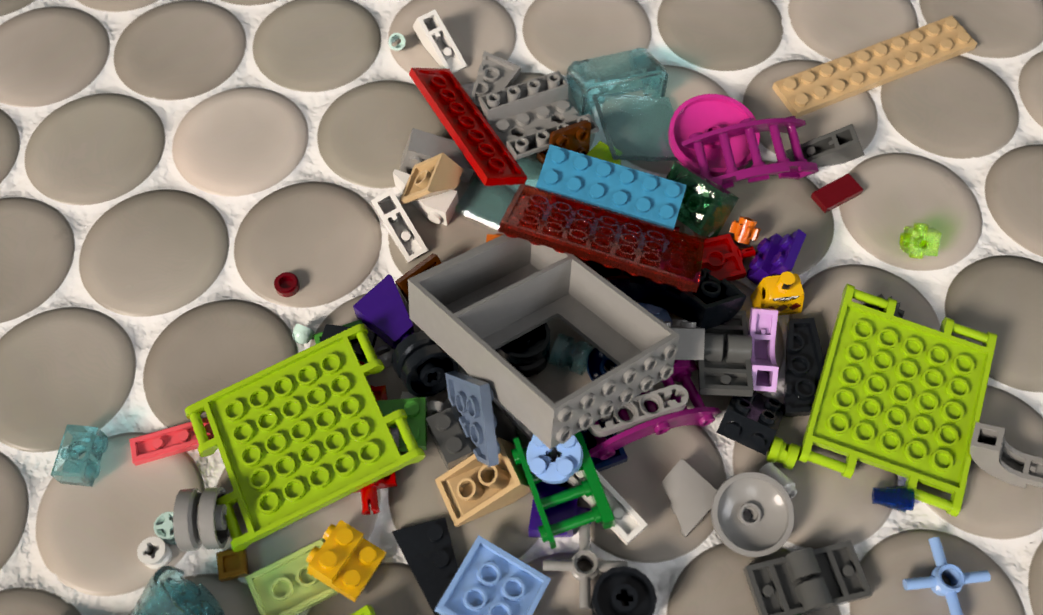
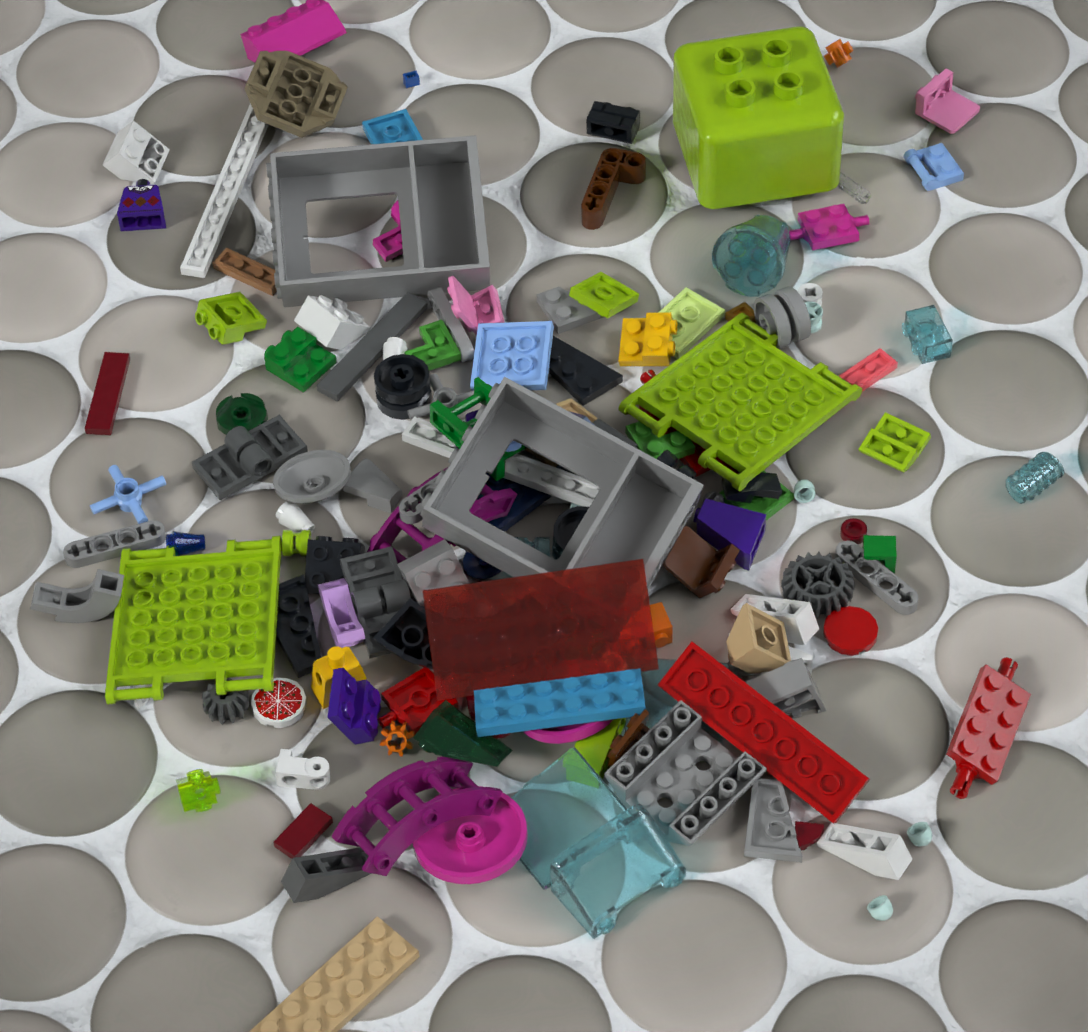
camera: 160 degrees right, 10 degrees down
(110, 267) = (1034, 477): none -> clear light blue piece
(194, 354) = (895, 442): none -> lime slope
(280, 246) = (881, 548): none -> green panel
(297, 91) = (987, 726): none -> plate
(299, 235) = (879, 575): none -> light grey beam
(337, 249) = (816, 576): none -> dark grey gear
(346, 201) = (850, 630): none -> red tile
(452, 15) = (880, 908): none -> light aqua hinge
(468, 72) = (808, 833): none -> dark red tile
(825, 302) = (281, 706): none -> tile
(828, 234) = (302, 772): none -> white leg
(964, 529) = (114, 540): none -> light grey beam

